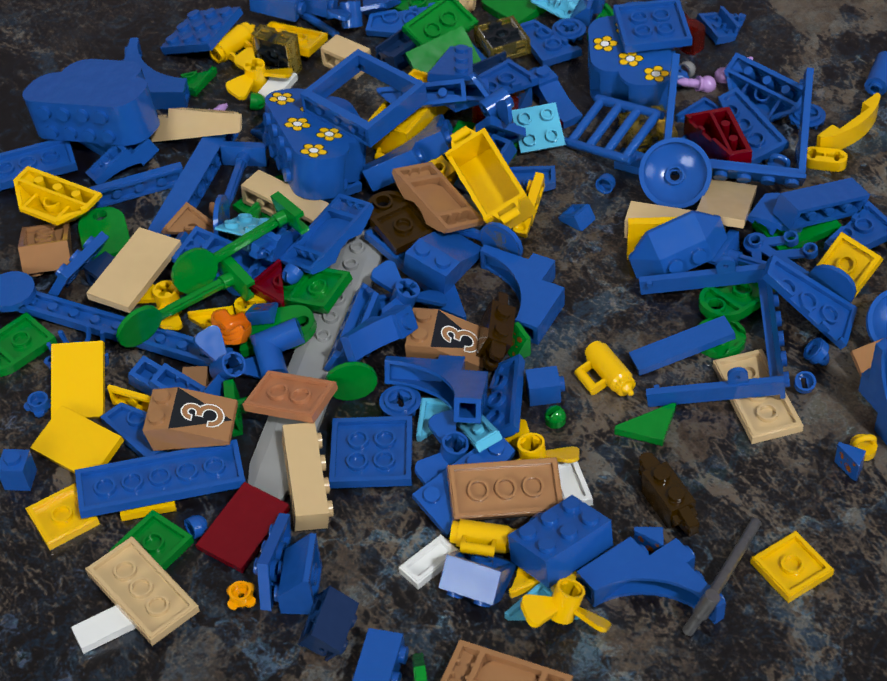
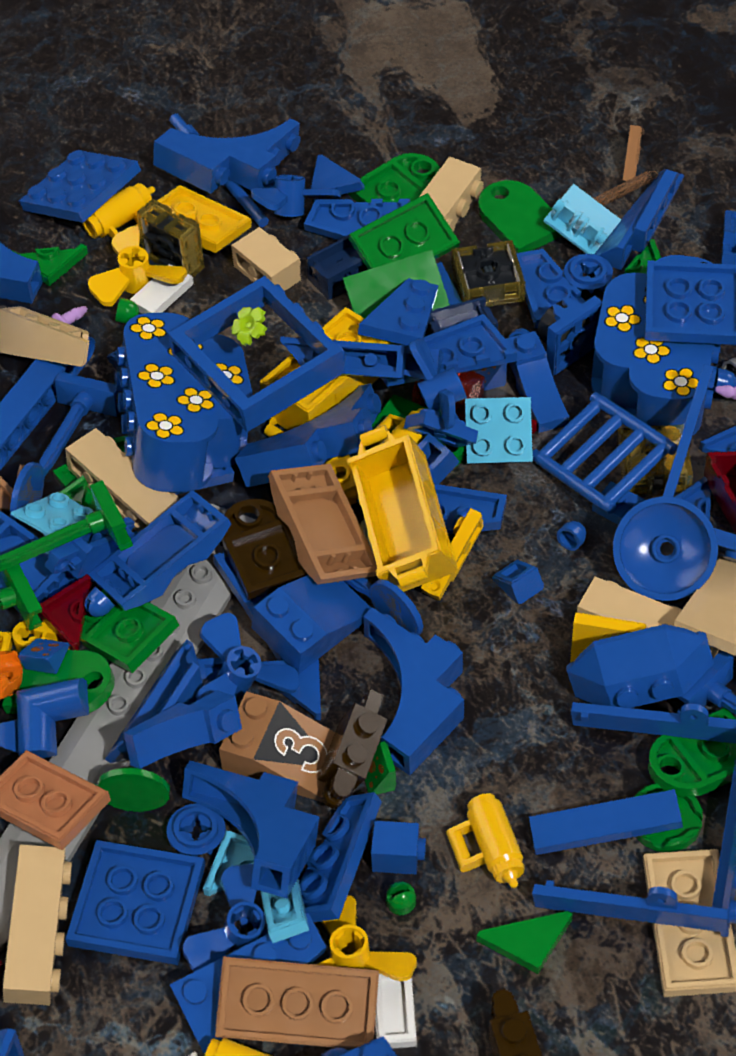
camera: 10 degrees right, 5 degrees up
(356, 77) = (249, 325): none -> lime plant
(570, 60) = (569, 331): none -> blue piece

